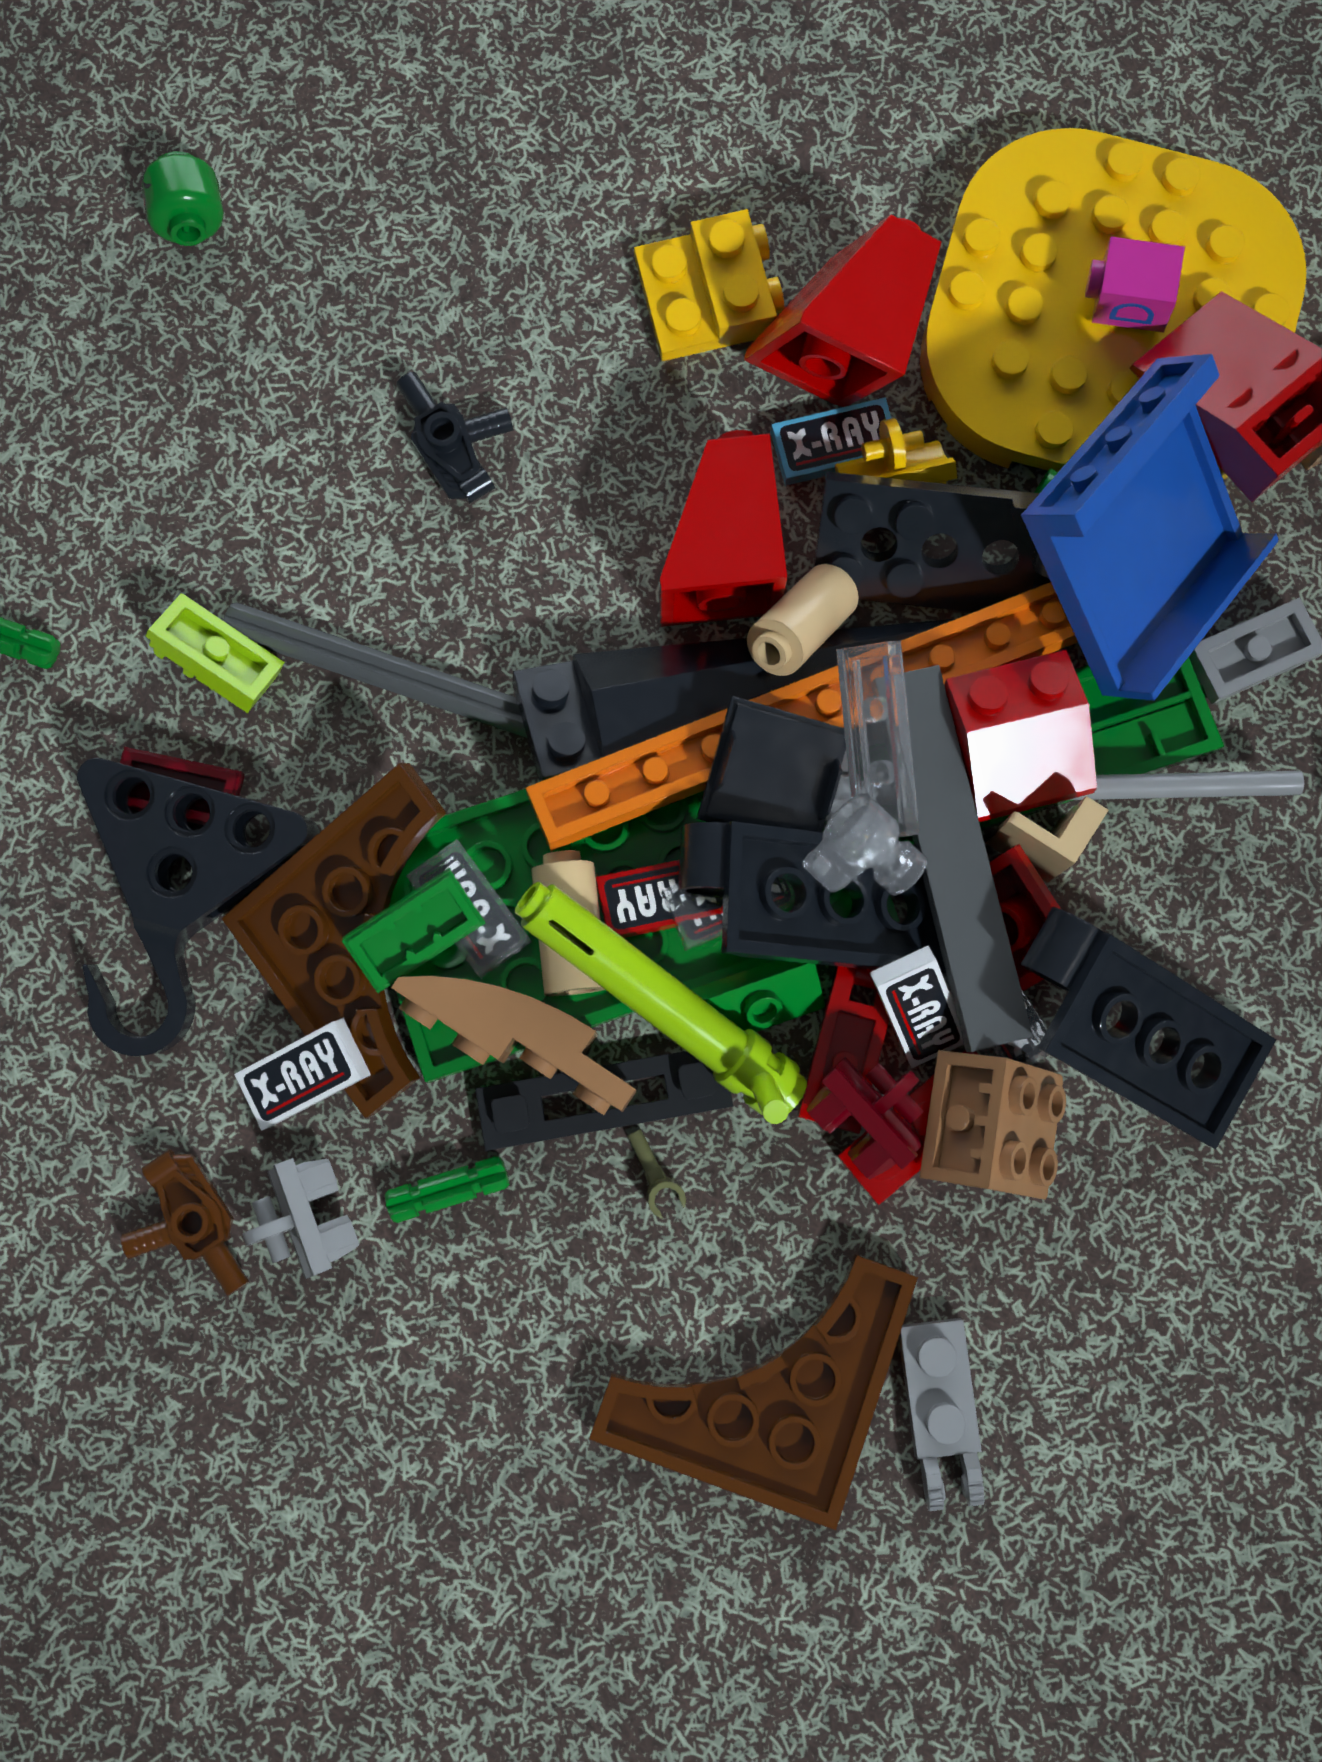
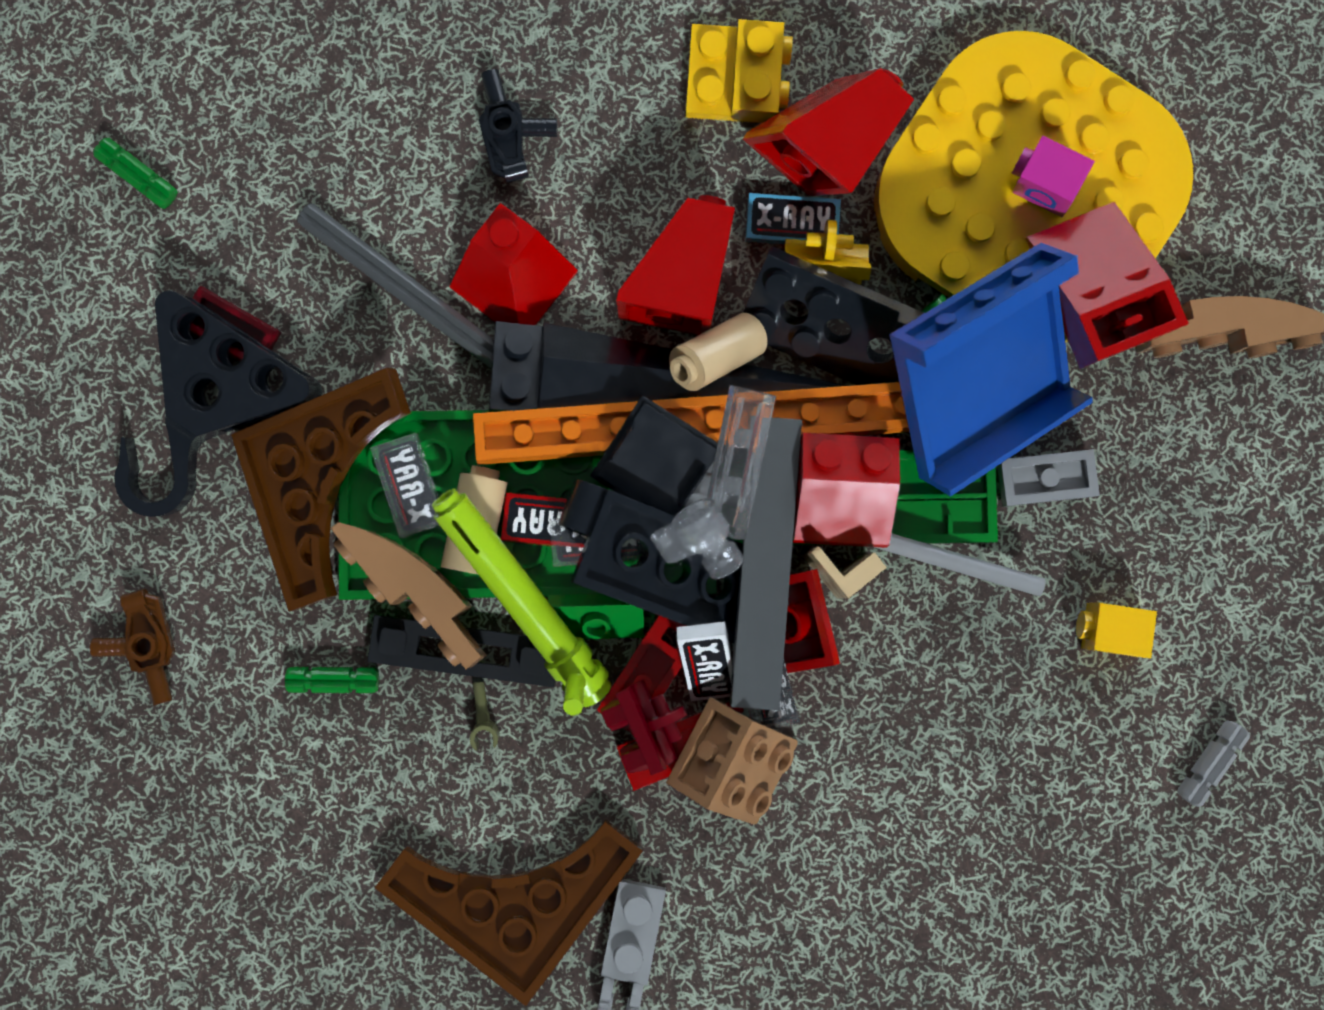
camera: 15 degrees right, 5 degrees up
(213, 652) = (284, 237): lime plate -> none
(294, 1190) = (226, 690): light grey hips -> none
(302, 1074) = (254, 566): tile -> none
(413, 930) = (361, 490): green plate -> none
(510, 605) = (511, 270): none -> red slope
(1105, 971) = (842, 683): black hinge -> none

